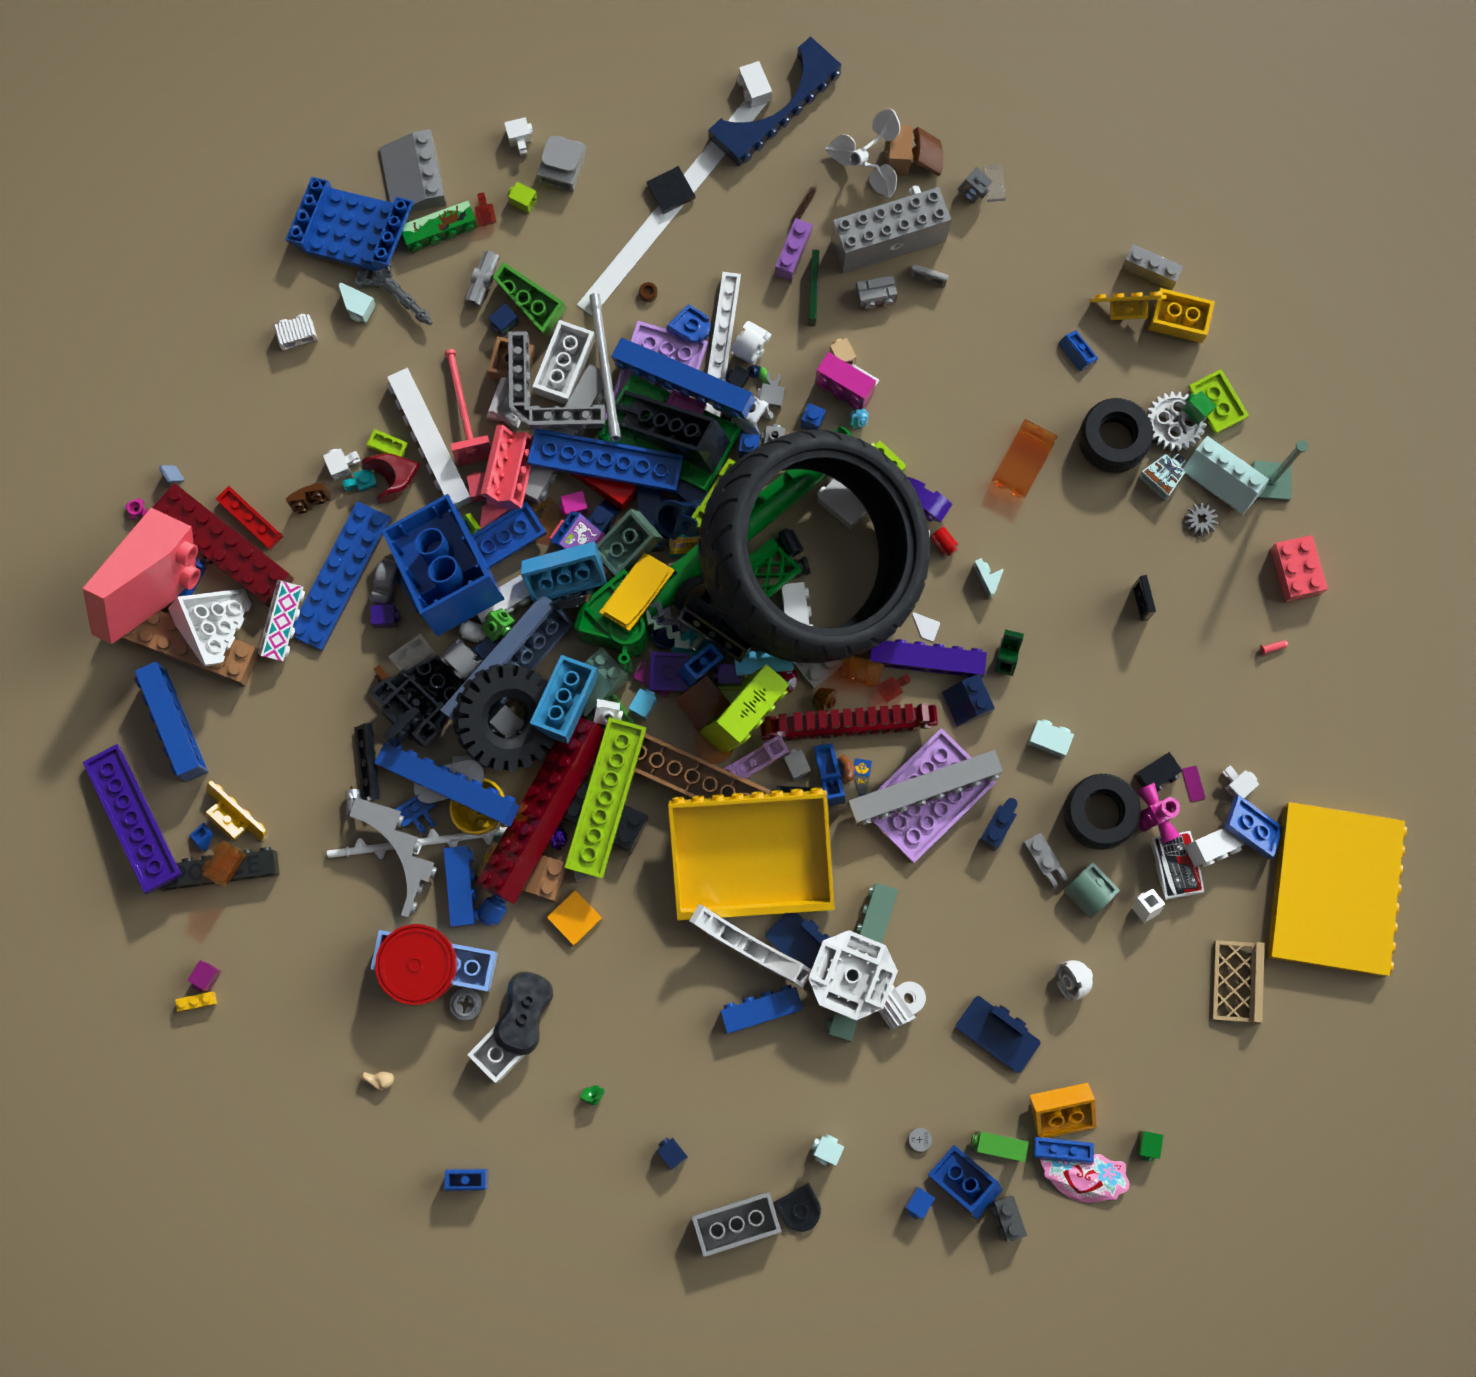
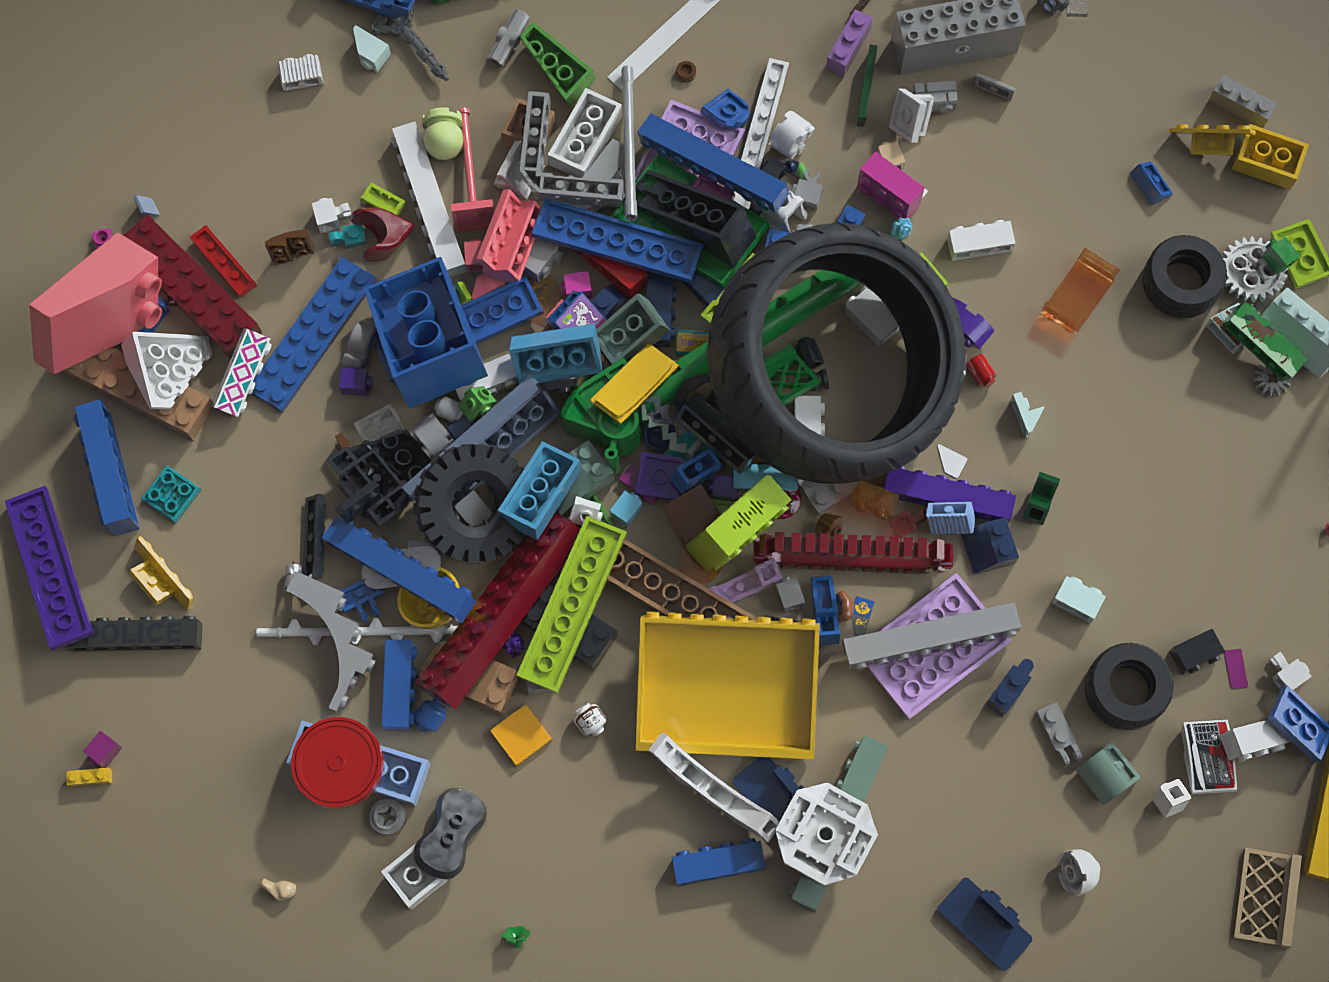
camera: 10 degrees right, 5 degrees down
(202, 836) = (122, 597): blue slope -> none
(223, 863) = (141, 626): clear orange brick -> none
(232, 737) = (171, 494): none -> teal tile
(434, 378) = (442, 133): none -> yellowish green tile
(503, 320) = (523, 82): dark blue brick -> none
(633, 897) = (589, 719): none -> white head
(673, 518) = (684, 310): dark blue container -> none
(856, 312) = (911, 114): none -> white bracket
(897, 1010) = (872, 882): white piece -> none
(931, 421) = (981, 240): none -> white brick
(931, 679) = (950, 517): none -> light blue brick
(1144, 598) = (1199, 456): black tile -> none
(1158, 813) = (1193, 695): dark pink brick -> none
(1191, 487) = (1264, 341): none -> green brick

